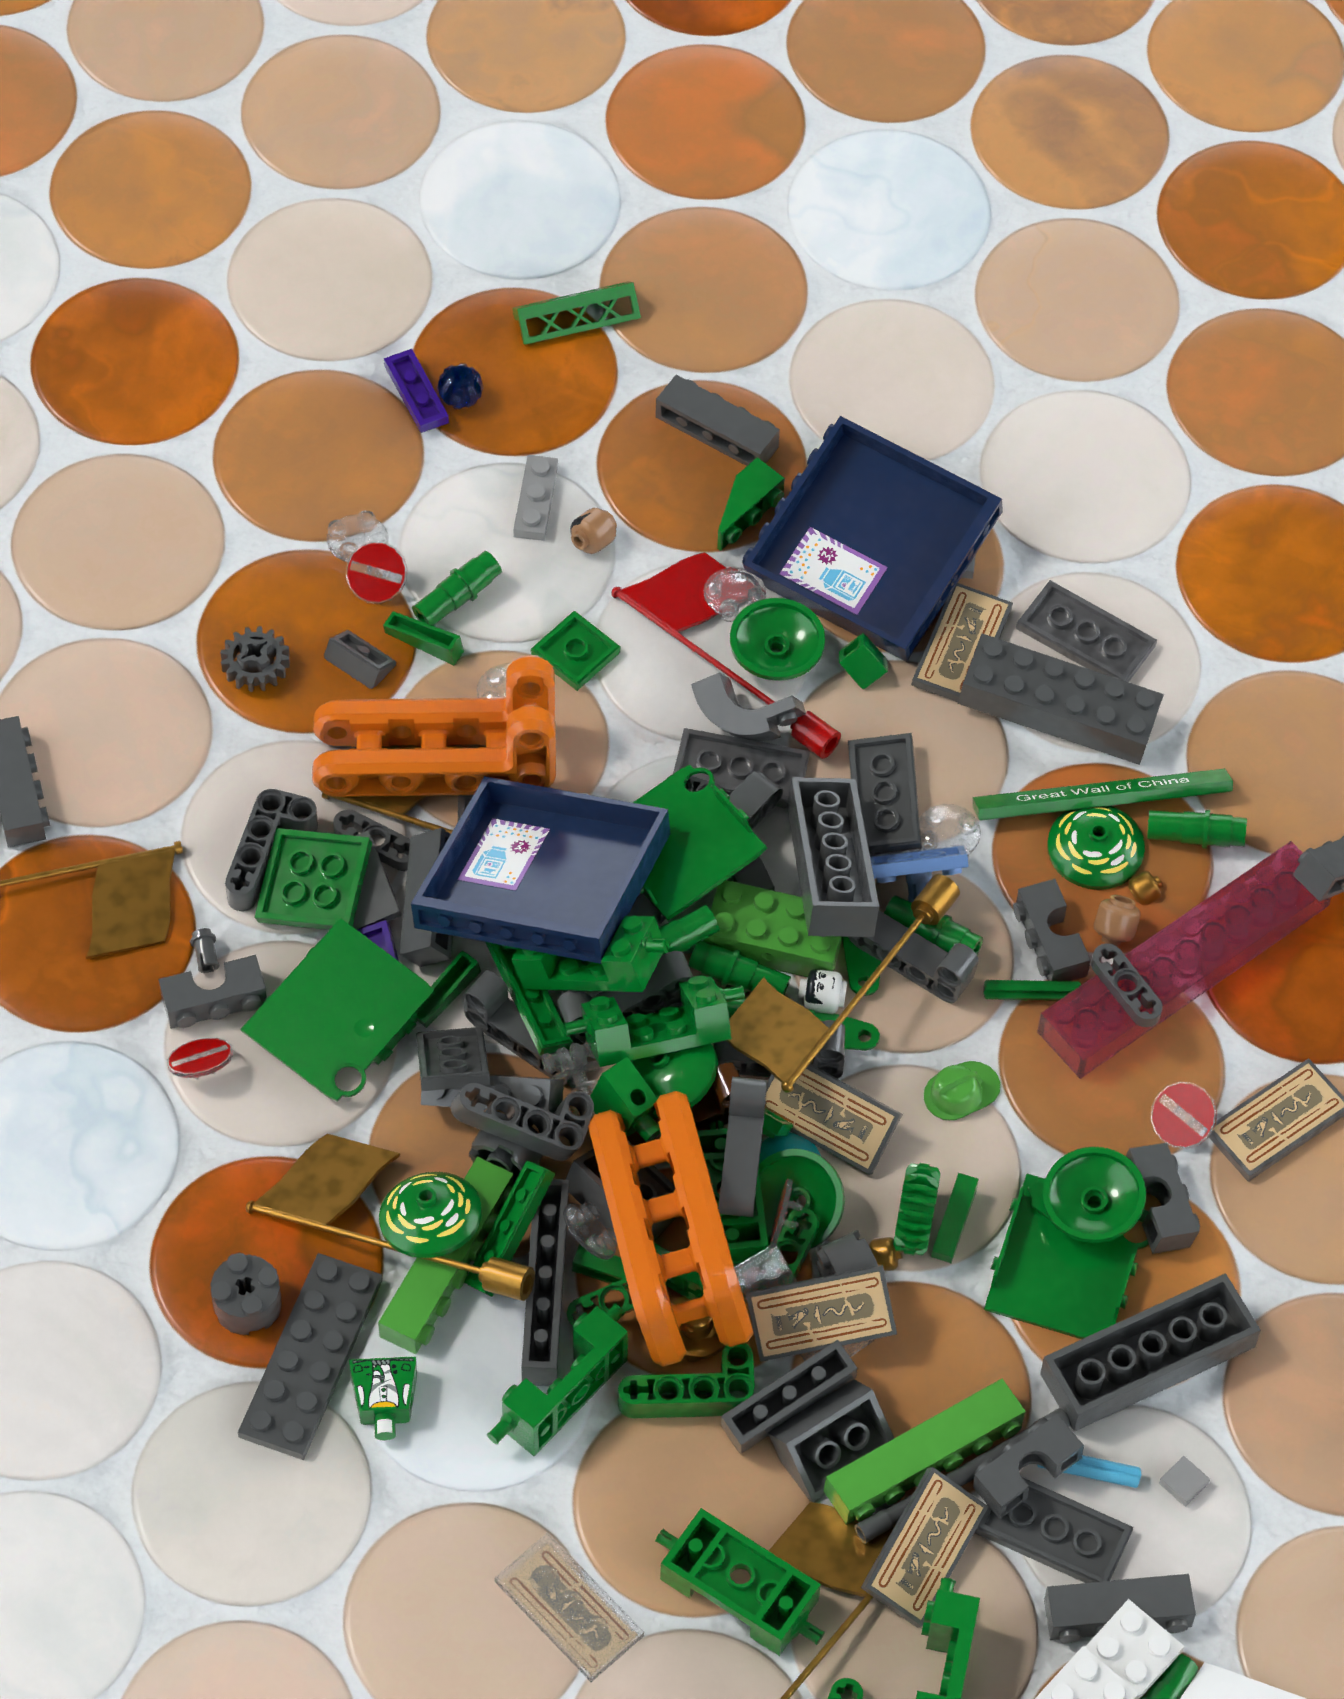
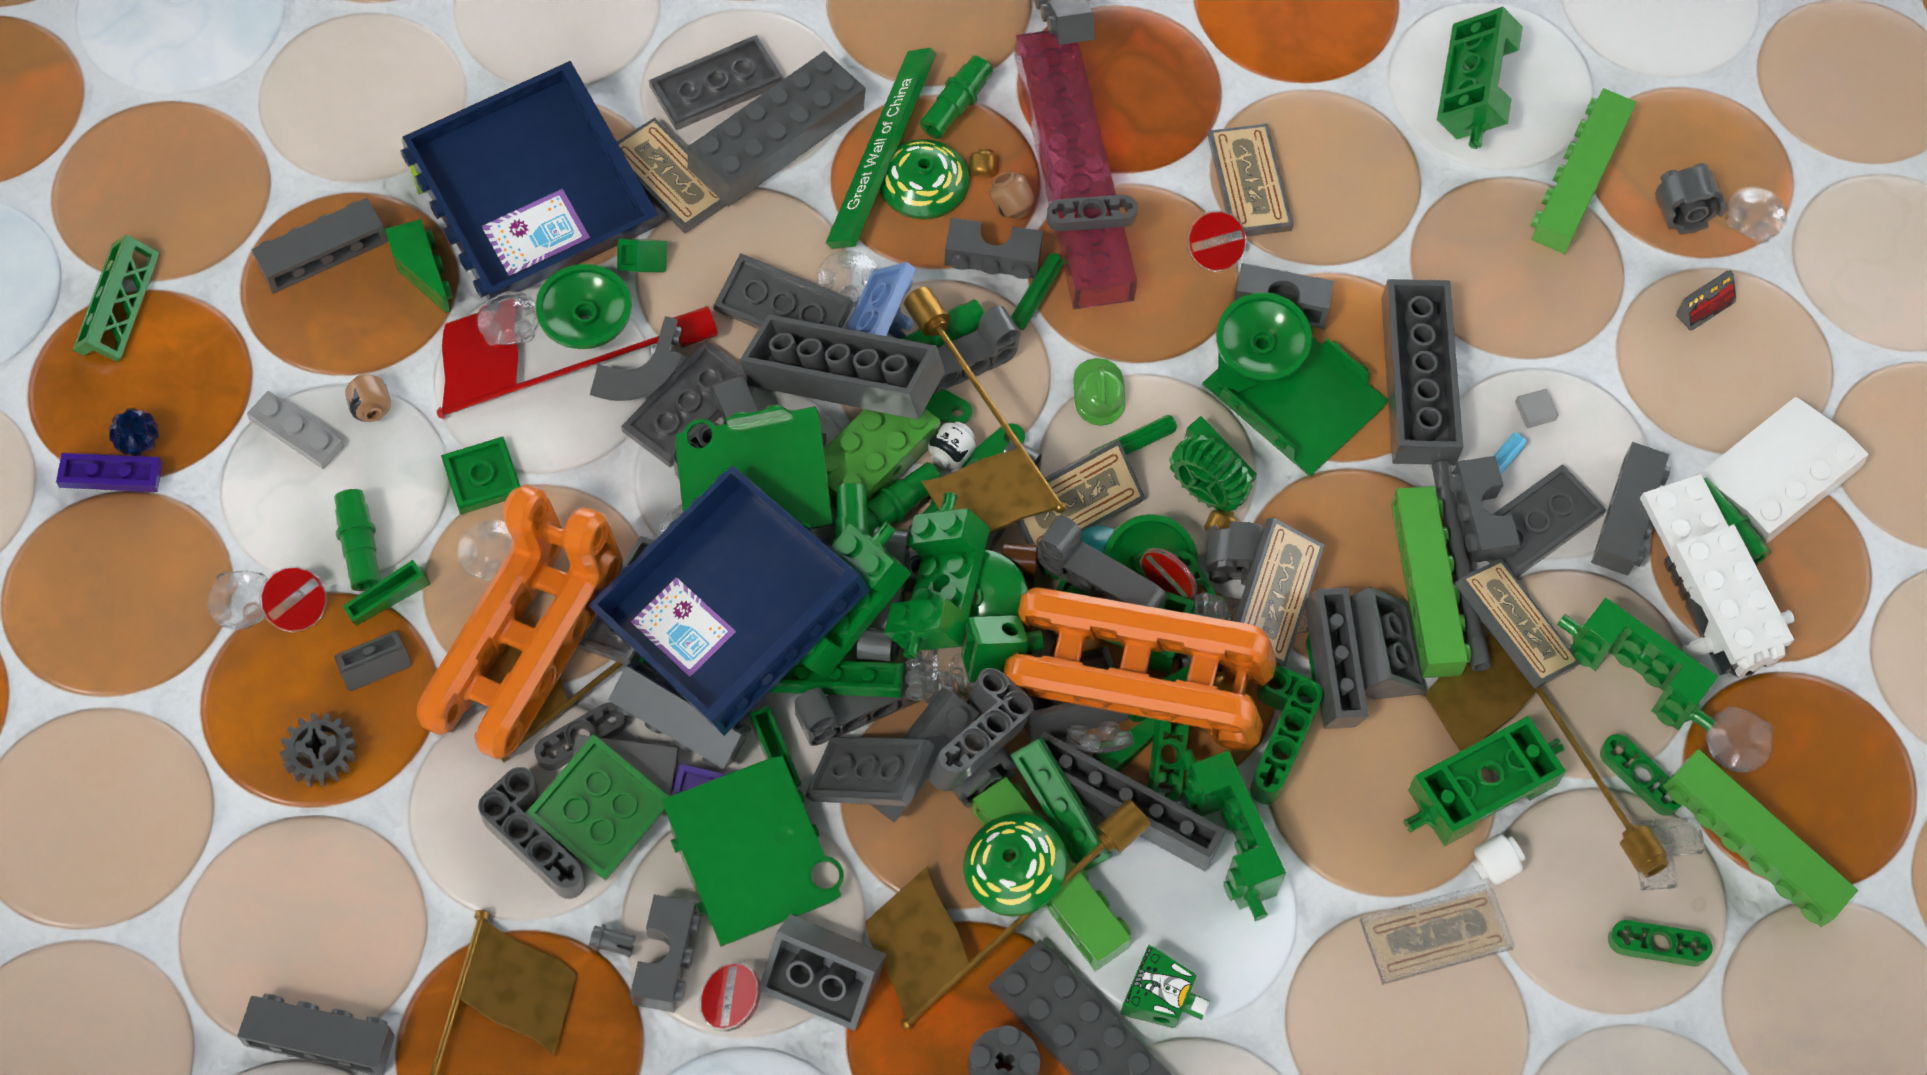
camera: 65 degrees left, 5 degrees up
(260, 1116) = (821, 971): none -> dark grey slope
(668, 1627) = (1498, 859): none -> white head
(931, 1144) = (1146, 434): none -> green axle

